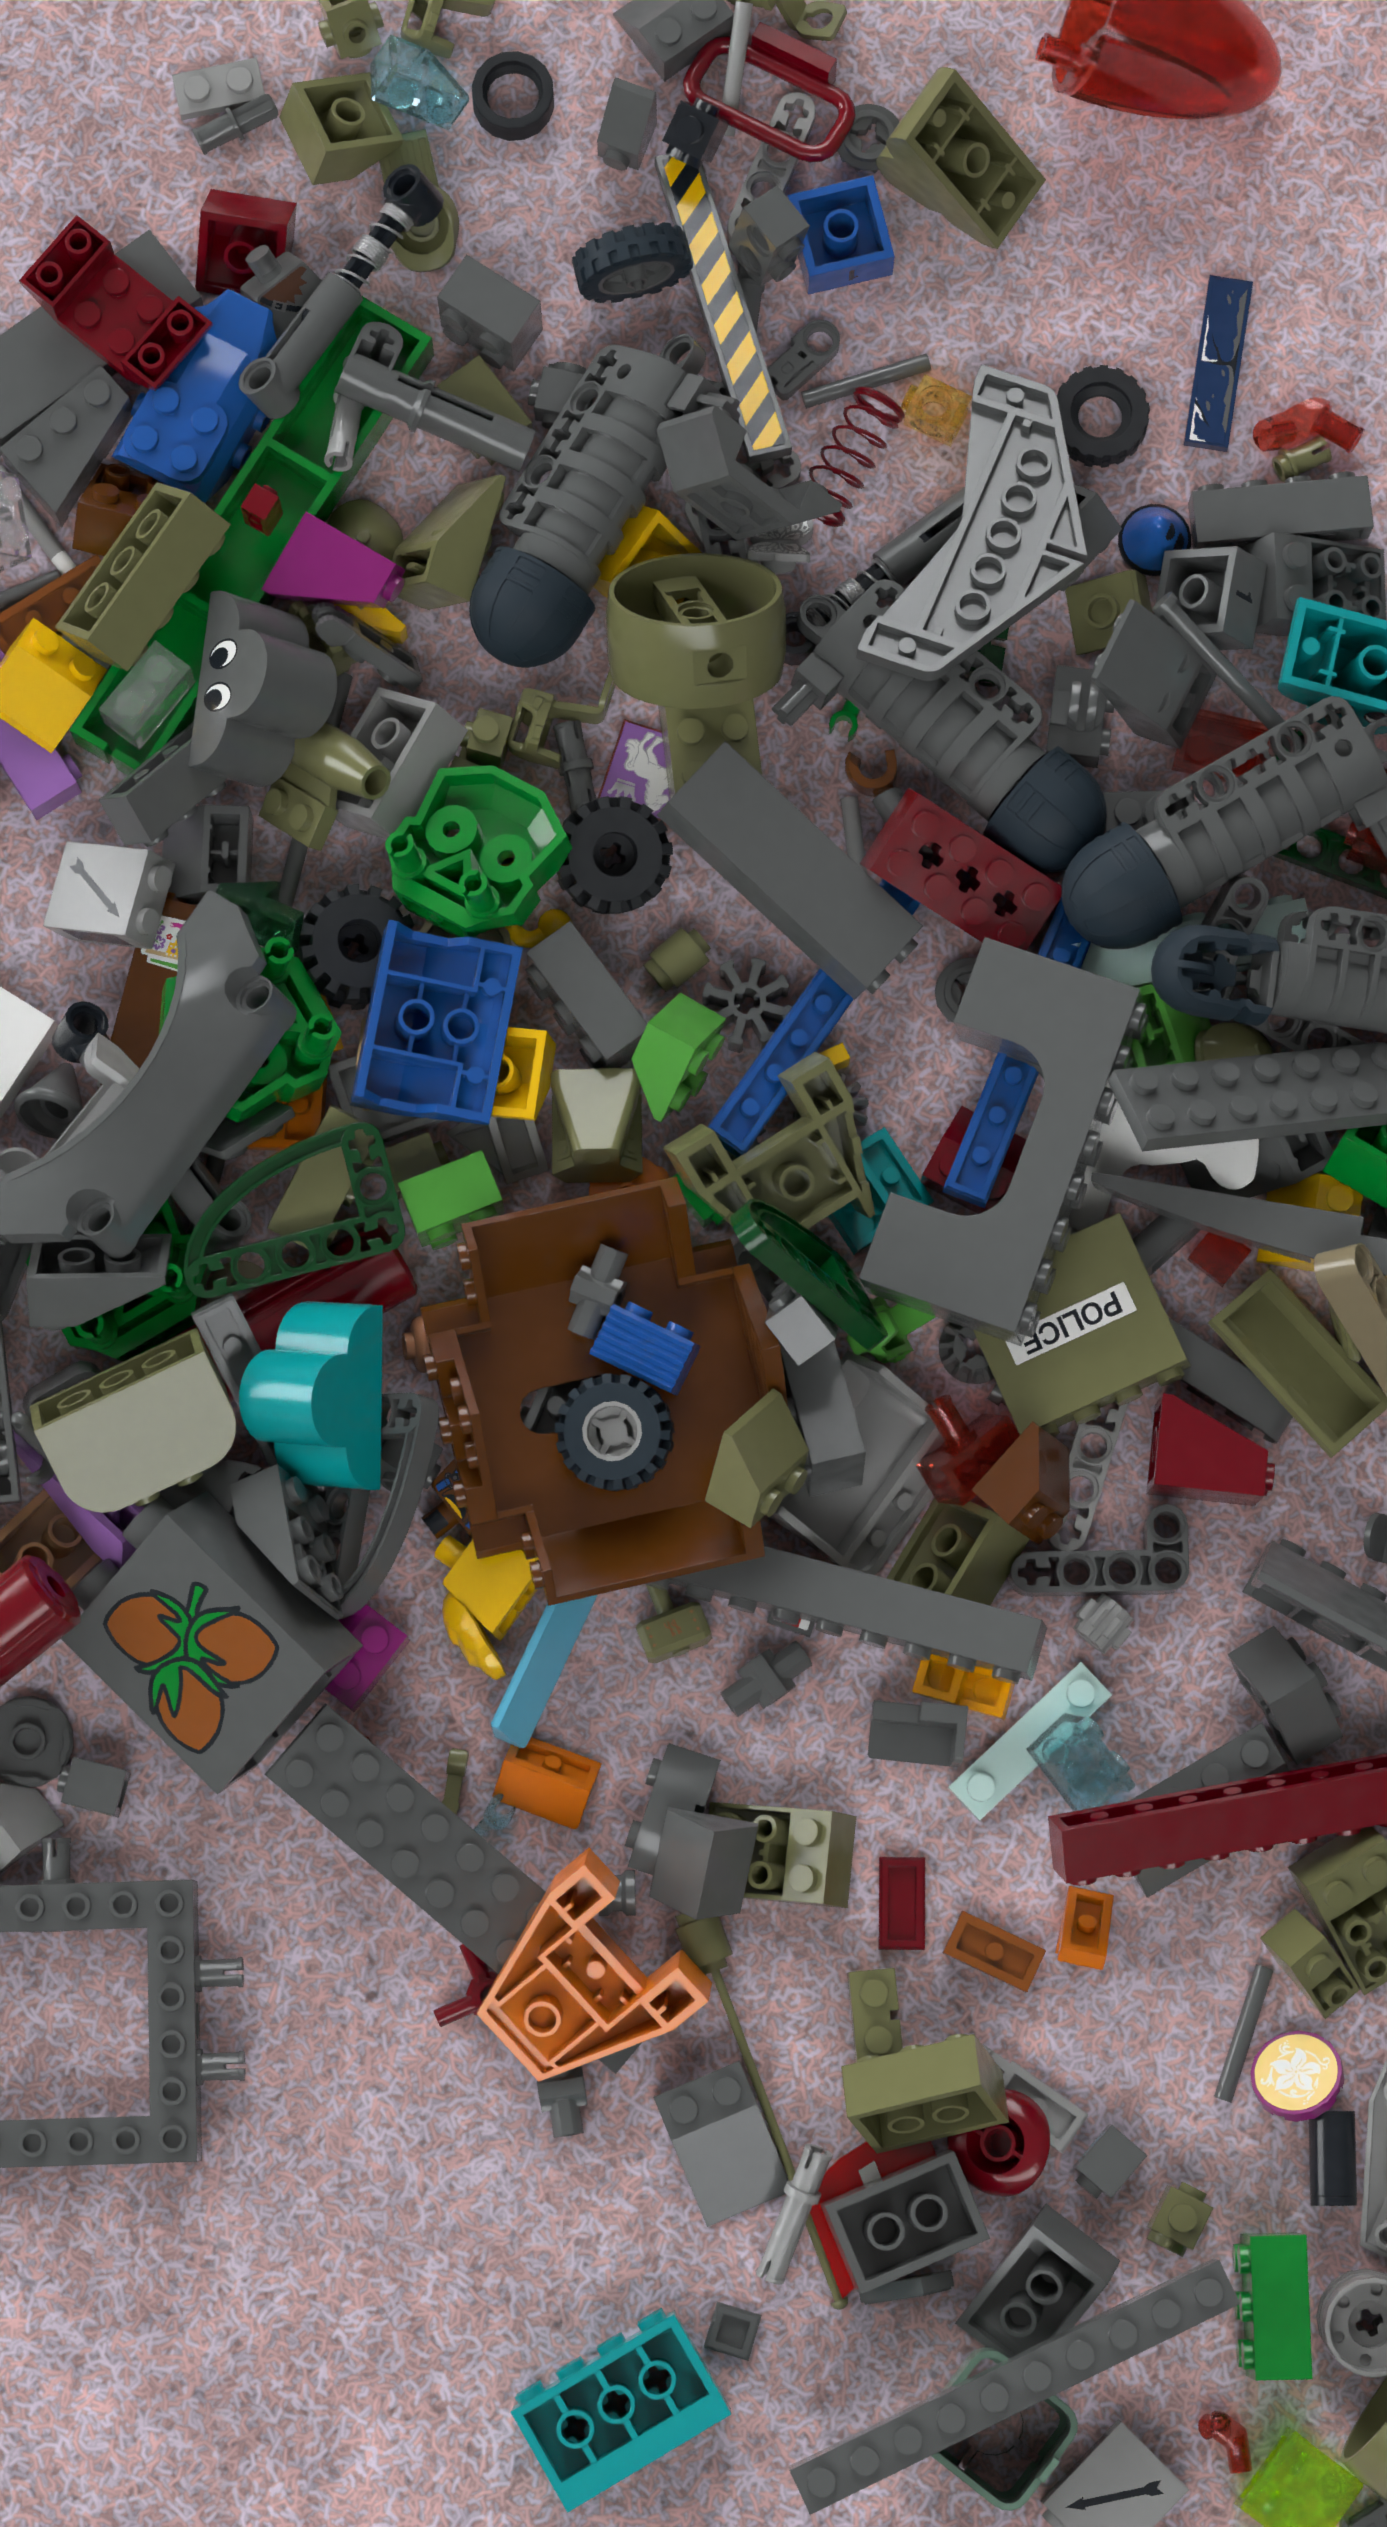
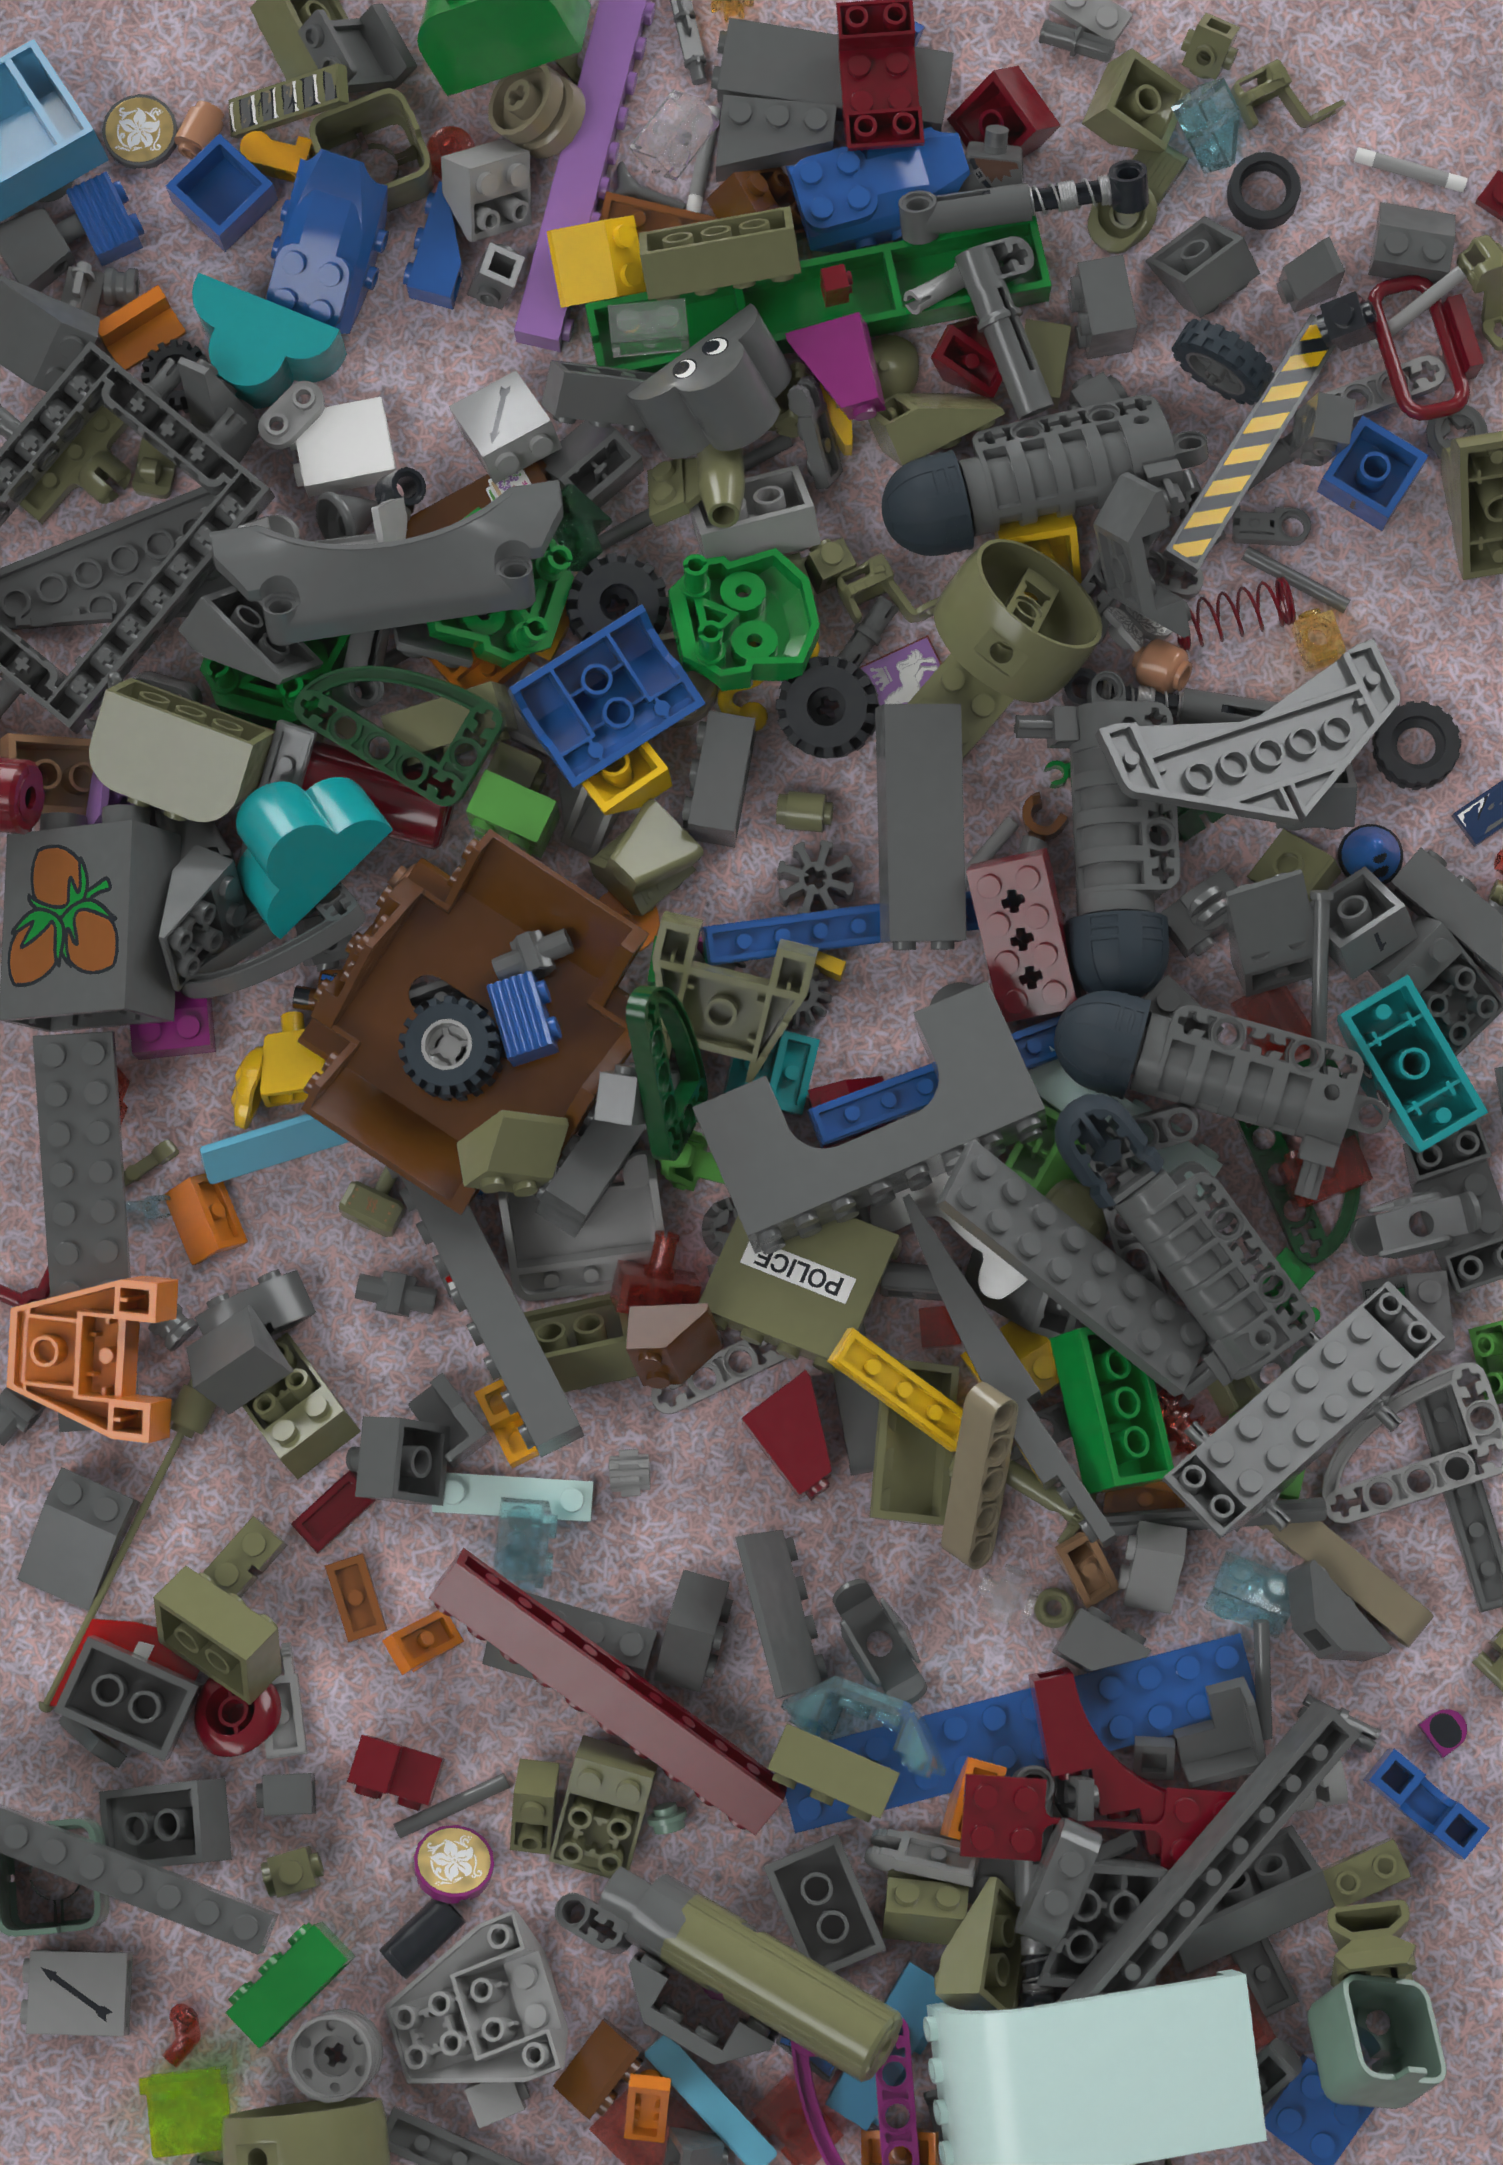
camera: 50 degrees right, 0 degrees up
(424, 464) = (966, 359): none -> dark red slope
(530, 202) = (1204, 266): none -> dark grey slope
(675, 1052) = (735, 864): bright green slope -> none
(801, 2196) = (84, 1619): light grey pin -> none
(837, 555) = (1162, 666): none -> nougat head
(917, 1805) = (400, 1460): none -> dark grey brick
(1098, 1563) = (667, 1434): dark grey beam -> none
(1174, 2051) = (395, 1770): none -> dark red brick
(1250, 1331) = (898, 1388): none -> yellow tile

